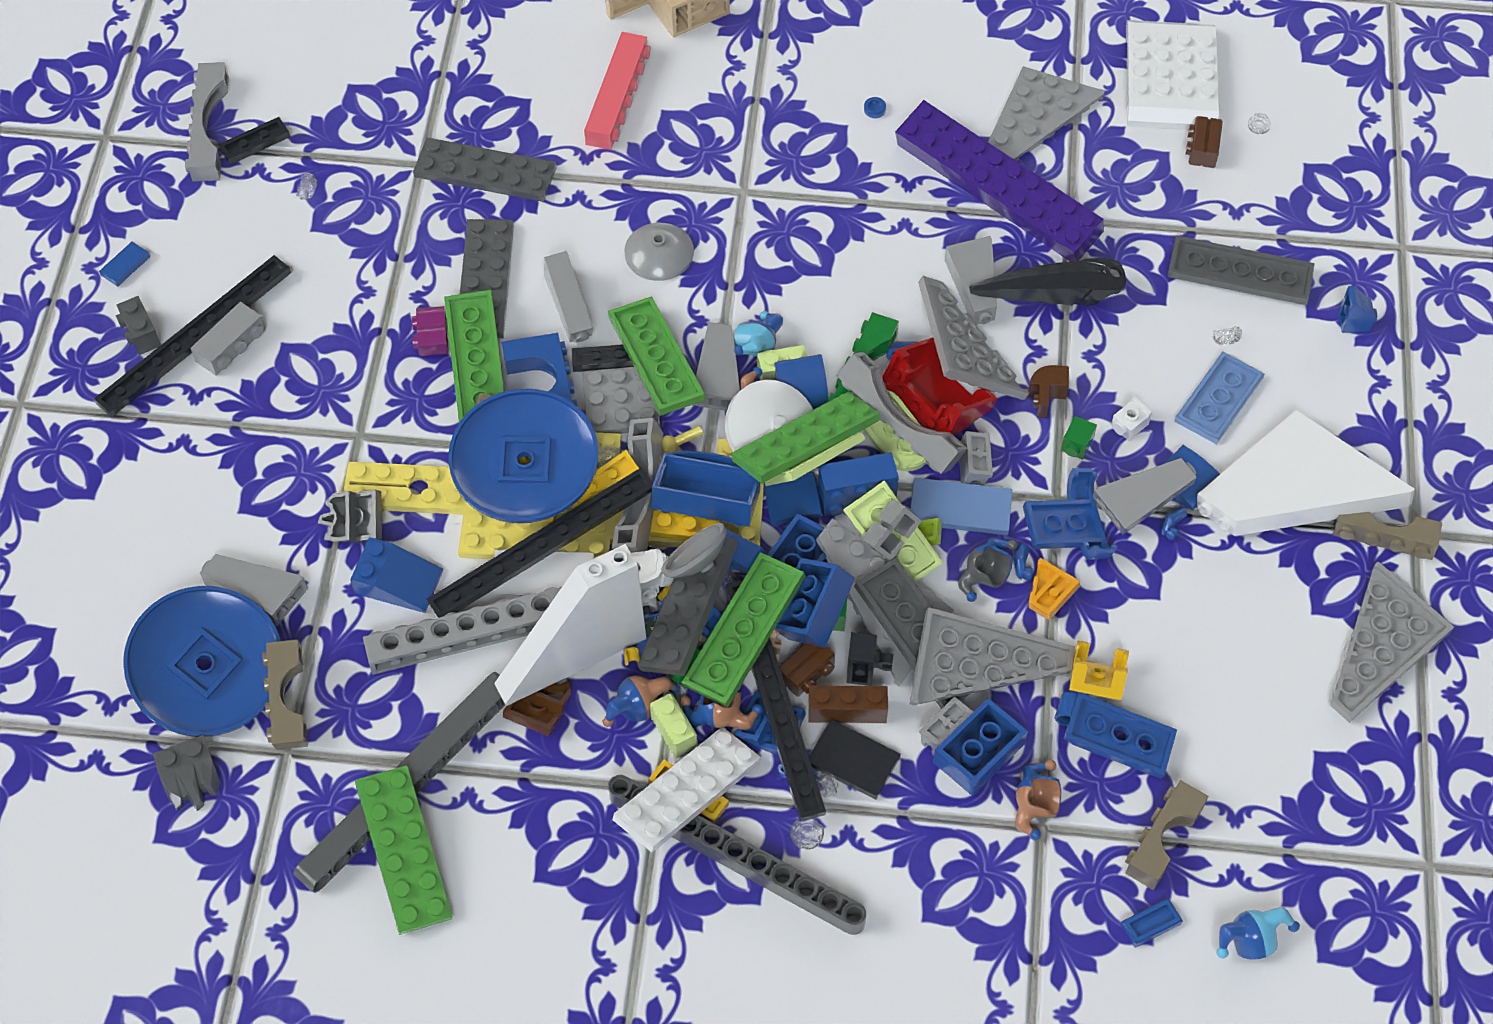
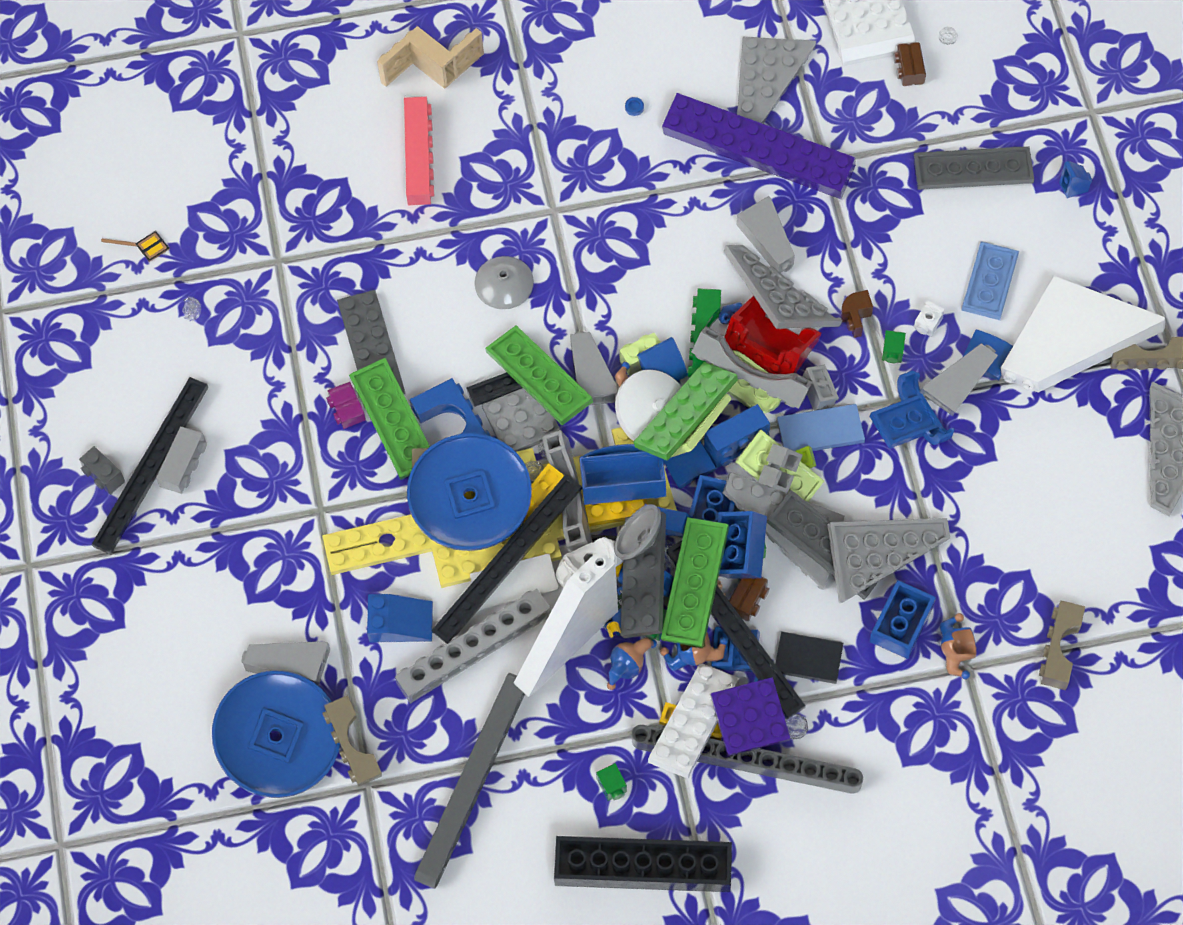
camera: 15 degrees left, 5 degrees up
(124, 263) = (65, 419): blue tile -> none
(187, 772) = (297, 826): dark grey plate -> none
(211, 86) = (74, 242): light grey arch -> none
(254, 140) = (130, 280): black plate -> none
(291, 113) = (150, 246): none -> piece
(353, 516) = (346, 580): dark grey plate -> none
(403, 850) = (492, 834): bright green plate -> none
(485, 169) = (333, 251): dark grey plate -> none
(541, 709) = (556, 691): reddish brown plate -> none
(565, 832) = (611, 782): none -> green brick
(565, 938) = (643, 864): none -> black brick
(567, 297) = (447, 345): light grey slope -> none
(671, 443) = (575, 443): light yellow bar -> none
(673, 725) = (663, 673): yellowish green brick -> none
(754, 803) = (750, 716): none -> dark purple plate
(757, 335) = (612, 335): medium azure piece -> none
(827, 784) = (797, 683): clear plate -> none
(848, 704) = (790, 616): reddish brown brick -> none
(863, 659) = (791, 576): black brick -> none
(944, 723) = (870, 610): light grey hinge -> none
(987, 566) = (858, 473): dark grey piece -> none
(1020, 561) = (882, 462): blue arm -> none
(1051, 589) = (913, 477): light orange wing -> none
(1057, 283) = (837, 221): black piece -> none
(1092, 728) = (982, 579): blue hinge -> none
(1099, 678) = (973, 539): yellow panel -> none
(1151, 922) = (1072, 715): blue tile -> none
(1170, 521) = (986, 393): blue arm -> none
(1227, 336) = (981, 227): clear plate -> none
(1254, 933) = (1150, 700): piece -> none

